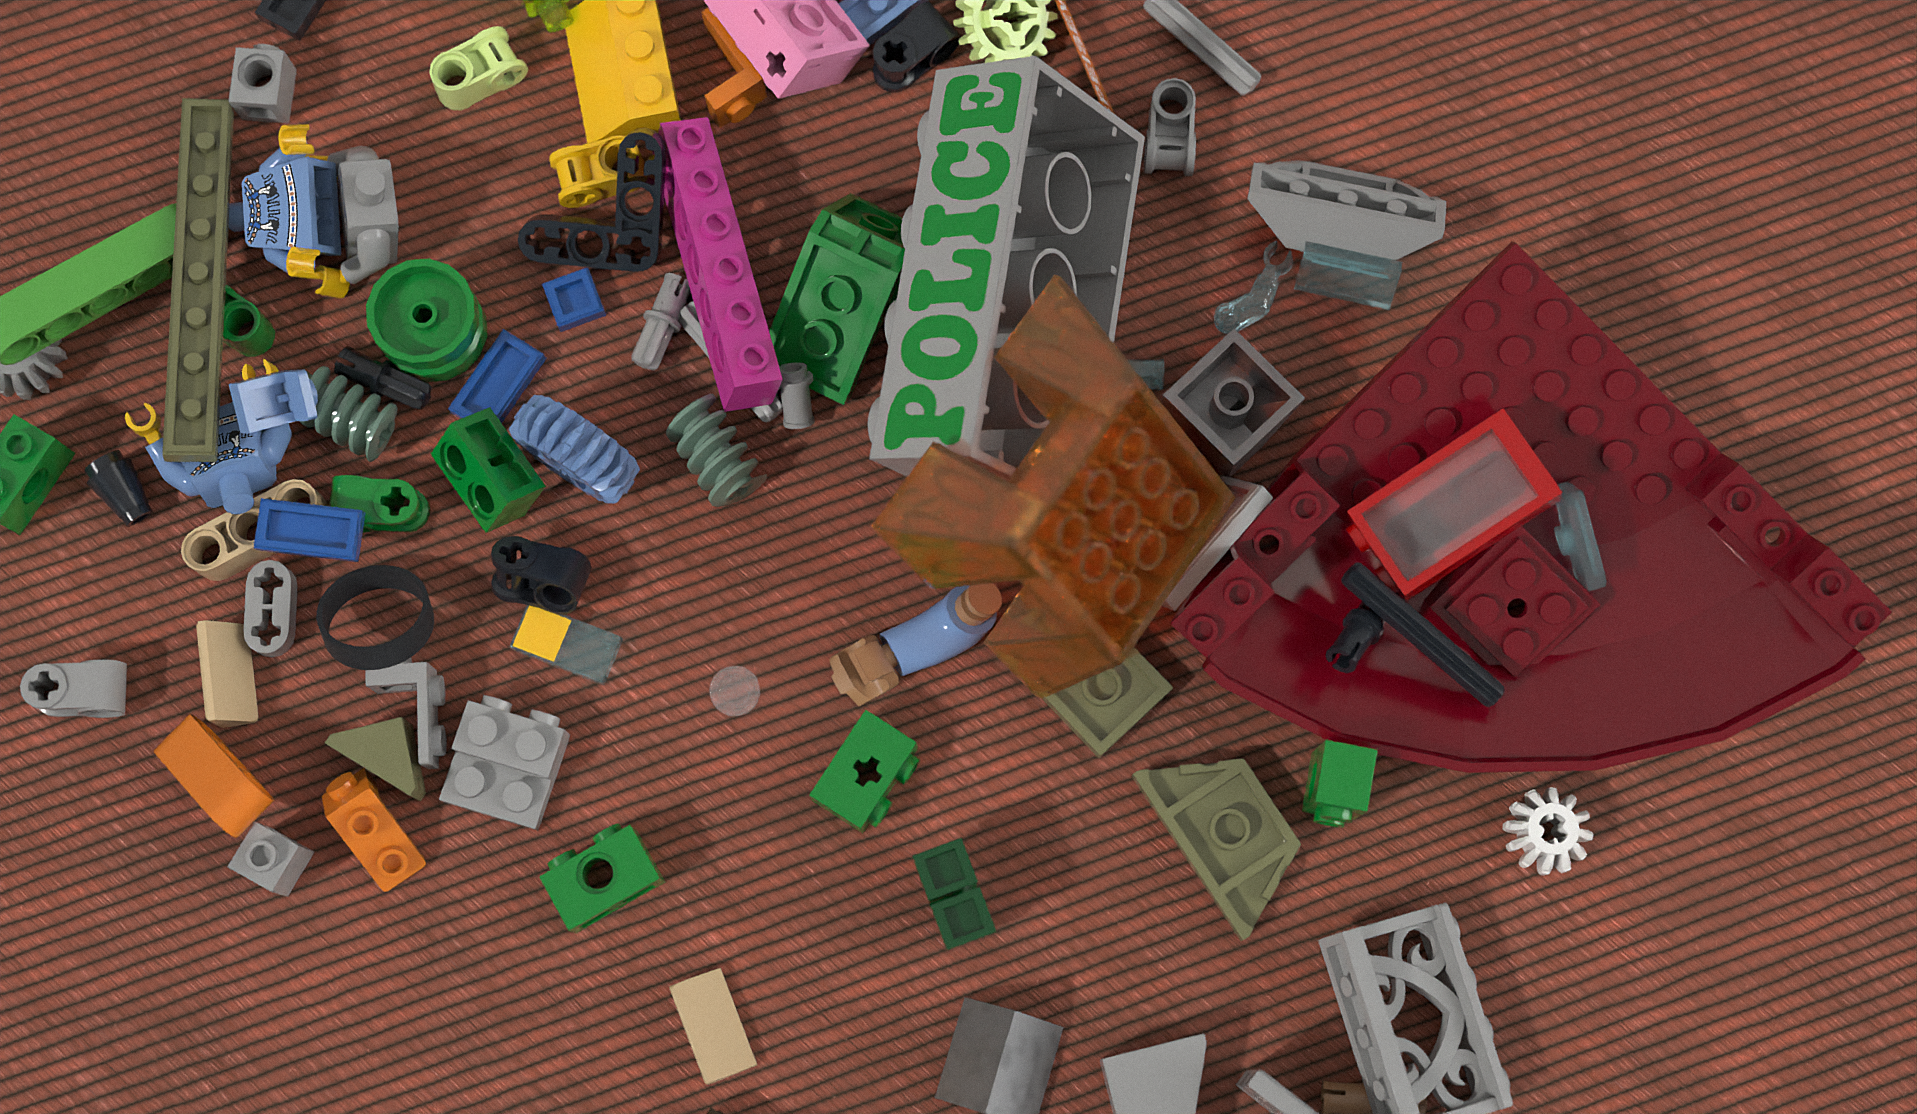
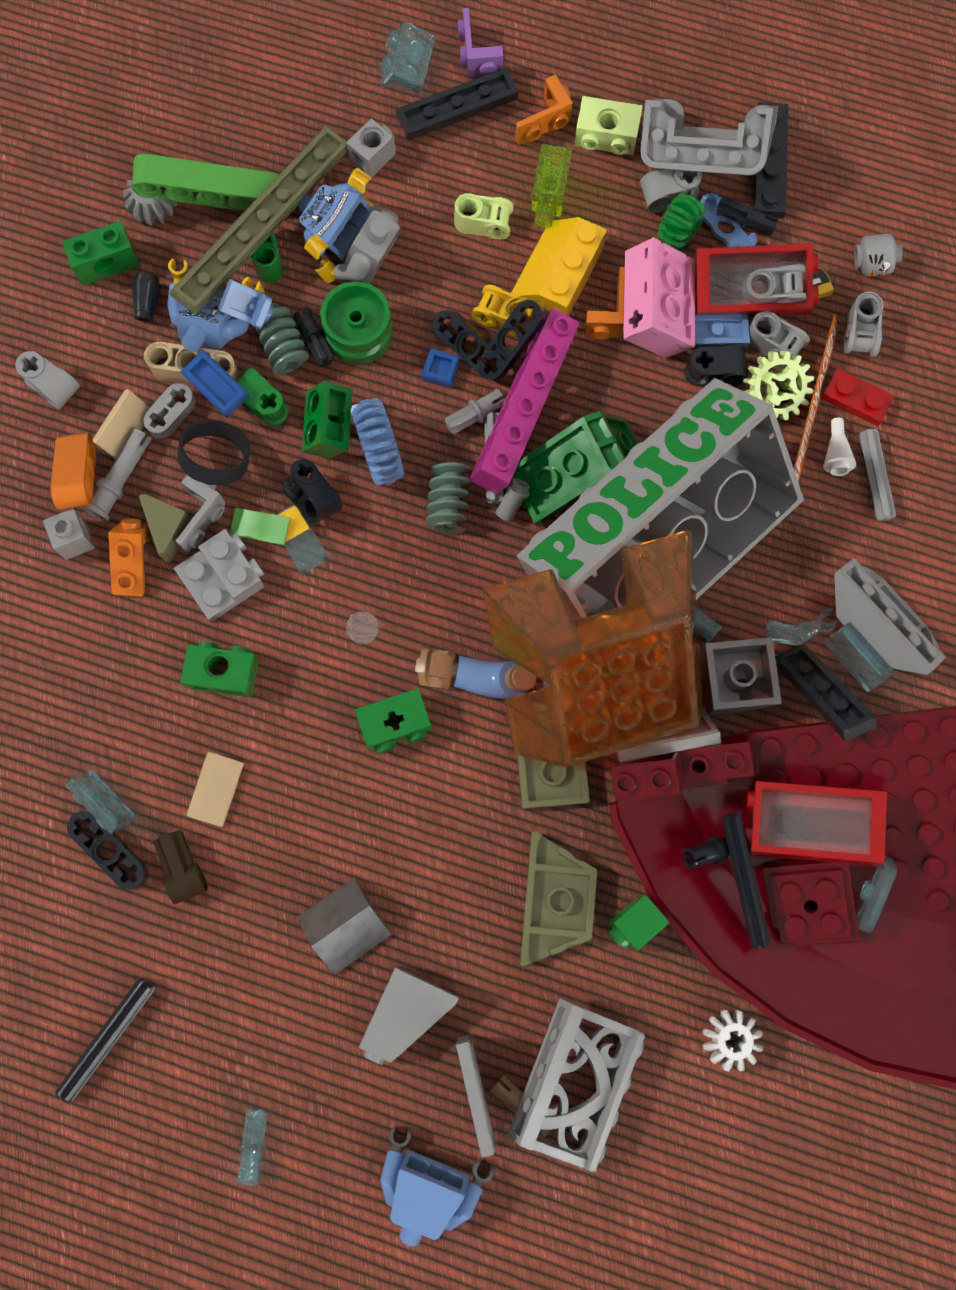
camera: 40 degrees right, 0 degrees up
(274, 761) = (110, 487): none -> light grey pin
(499, 378) = (372, 380): blue tile -> none
(506, 664) = (260, 526): none -> bright green sticker
(954, 894) = (387, 819): dark green hips -> none
(1141, 51) = (839, 455): none -> white cone
(1171, 137) = (819, 511): light grey piece -> none
(1344, 346) = (826, 692): none -> black plate

